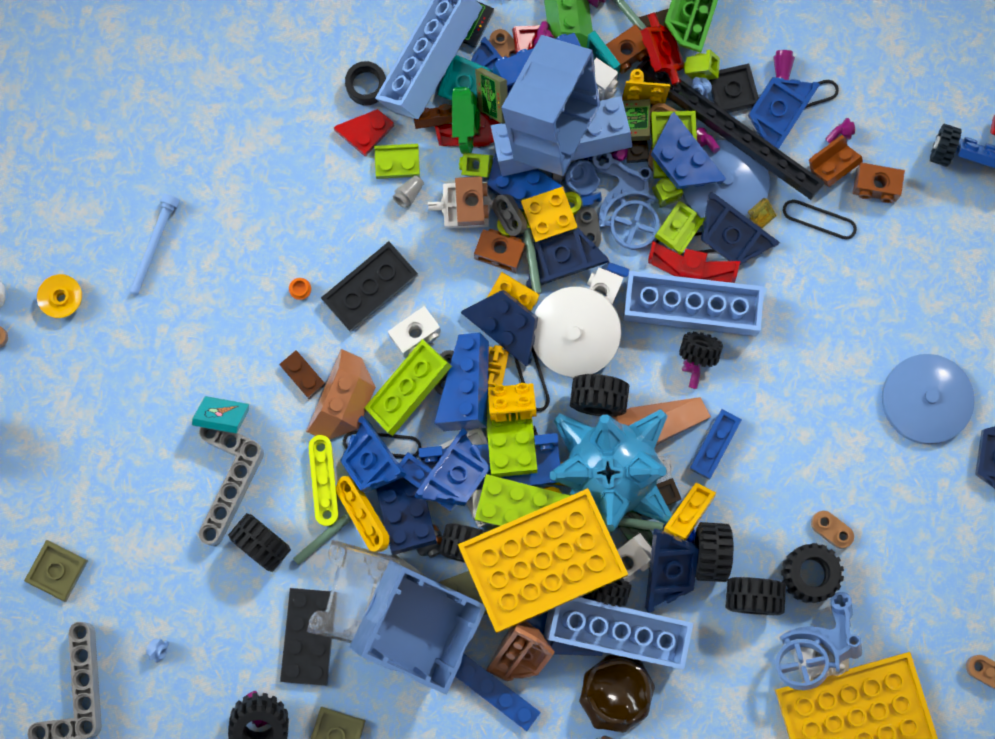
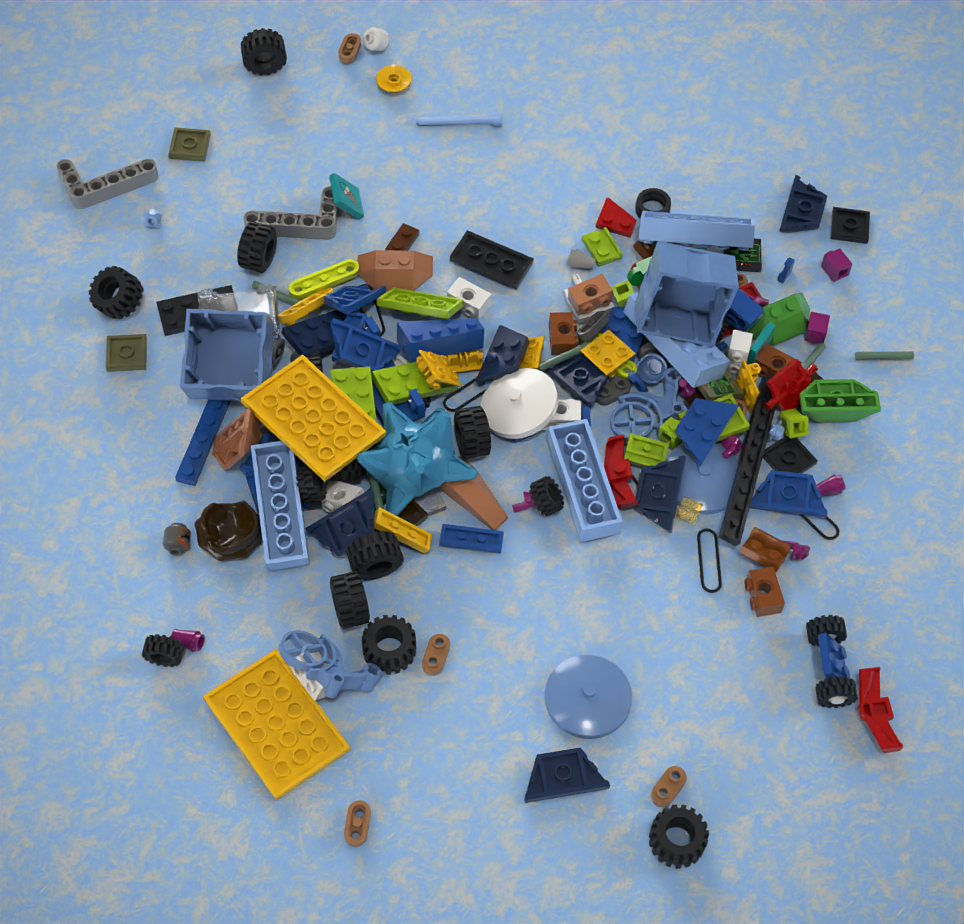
camera: 65 degrees right, 20 degrees down
(300, 289) = (468, 217): orange plate -> none

